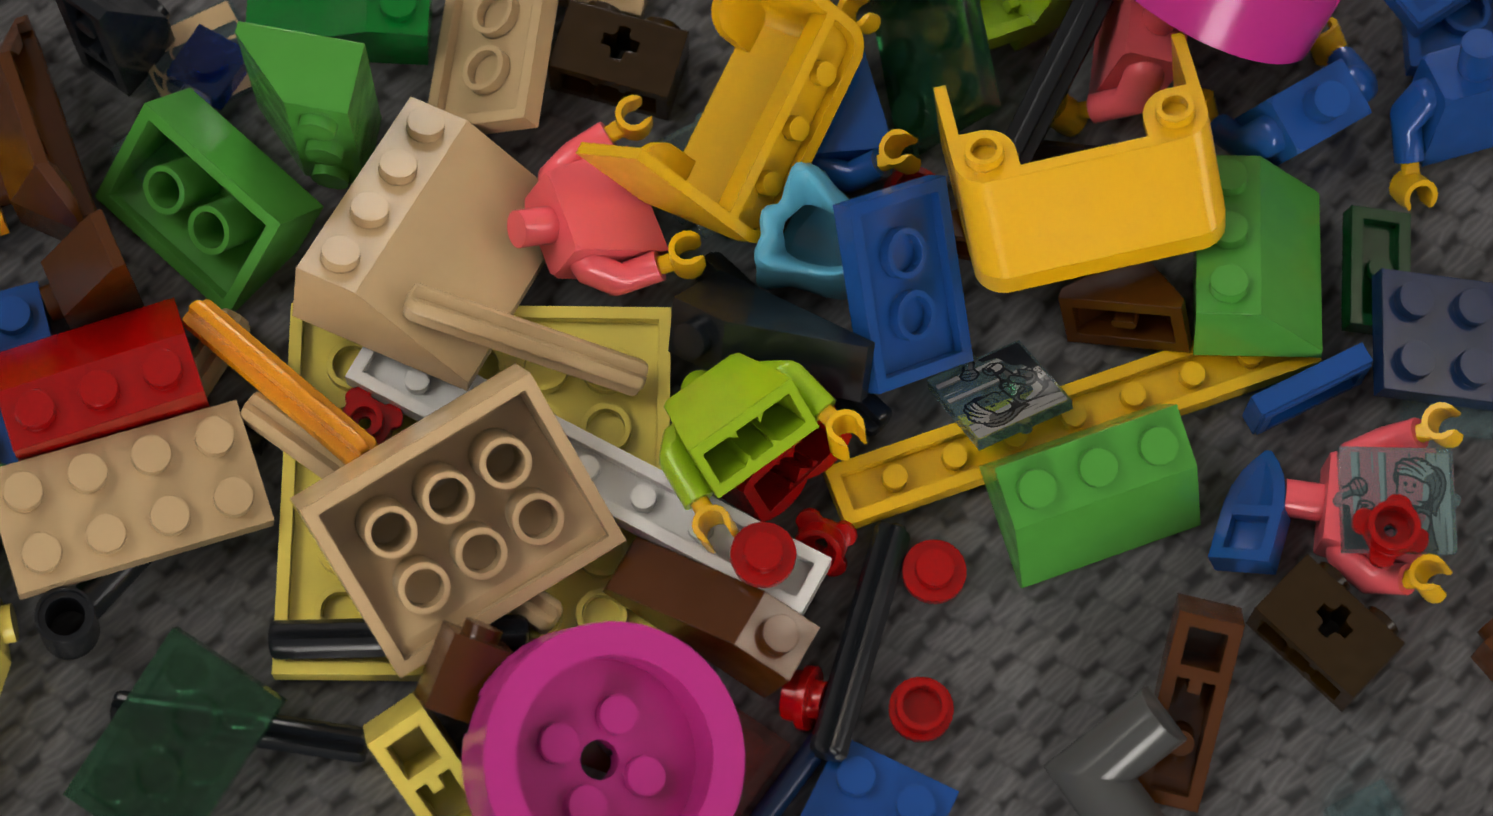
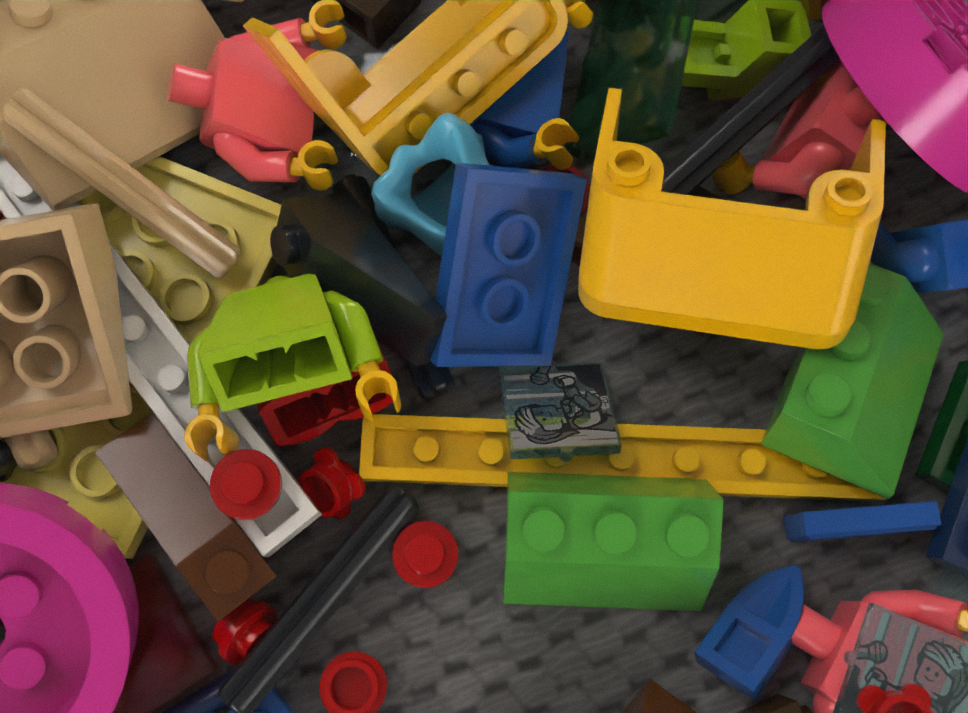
camera: 25 degrees right, 5 degrees up
(1126, 309) = (714, 375): reddish brown slope -> none

